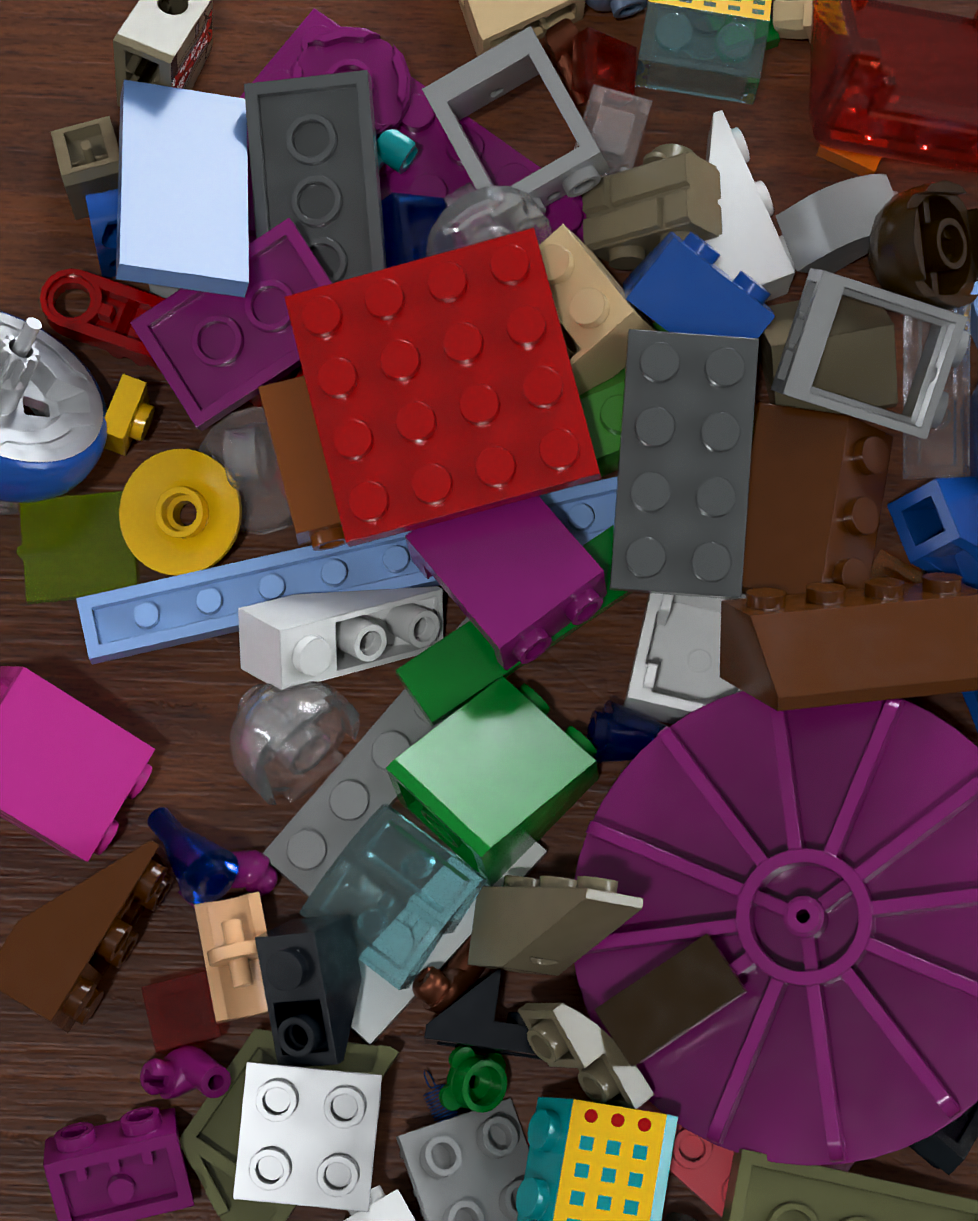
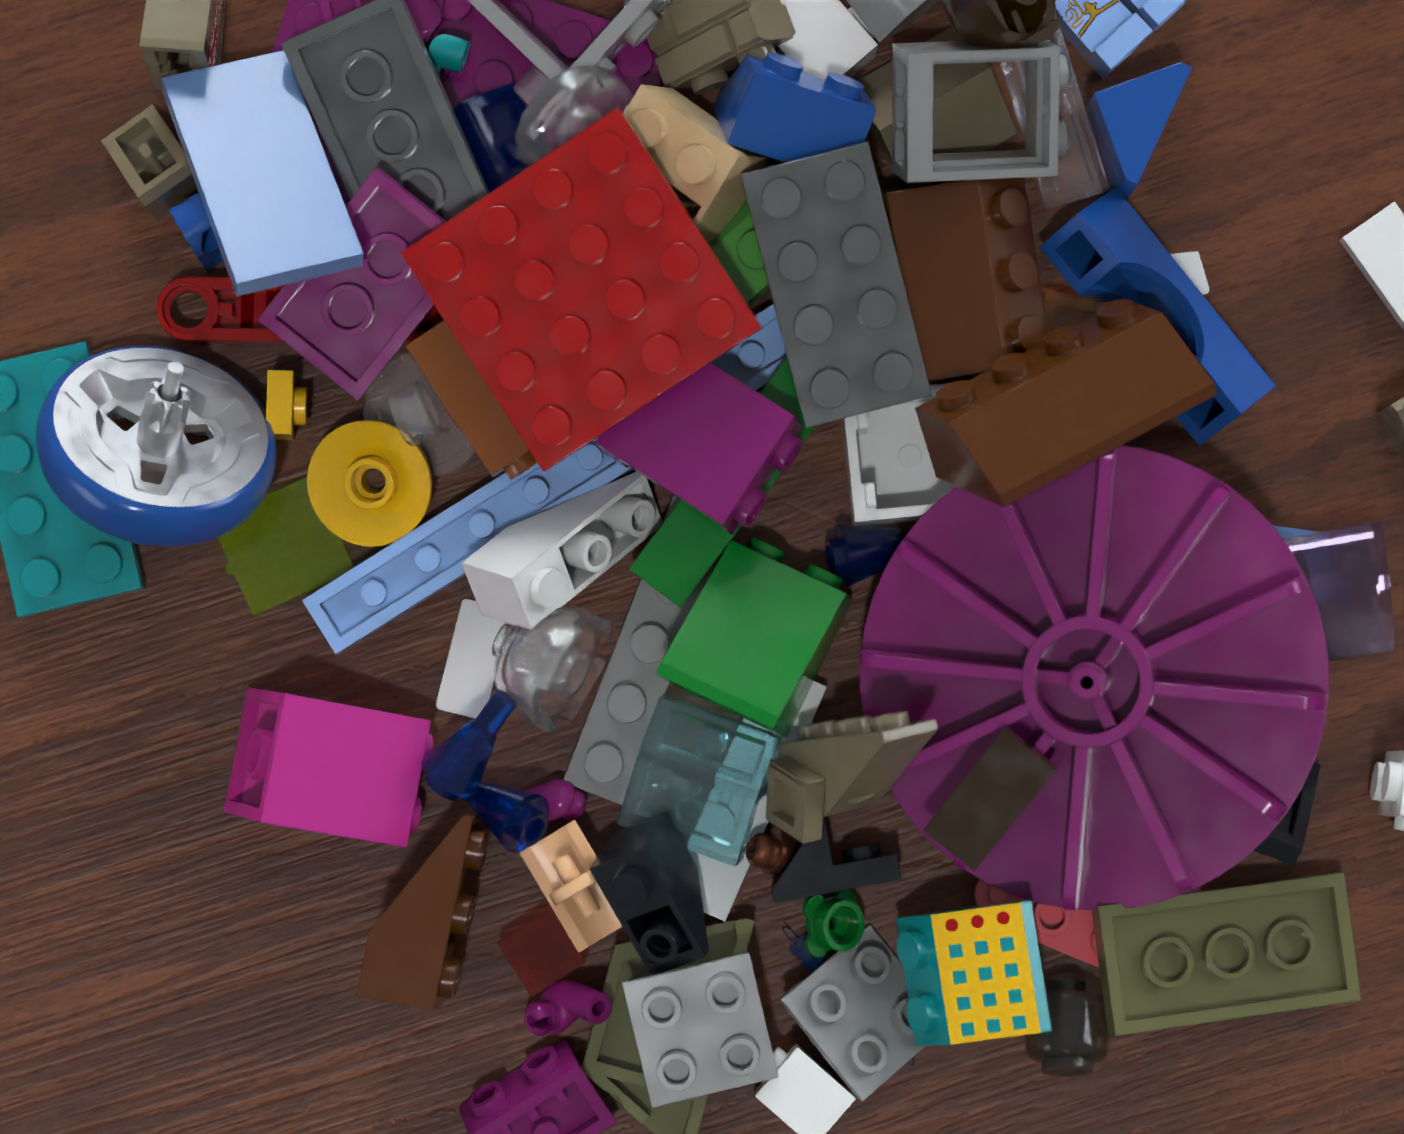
camera: 10 degrees left, 10 degrees up
(170, 795) = (461, 760): none -> clear blue cone
(209, 722) = (470, 663): none -> white sticker
(479, 942) = (795, 799): none -> dark tan tile
(574, 1041) = (918, 864): dark tan slope -> none

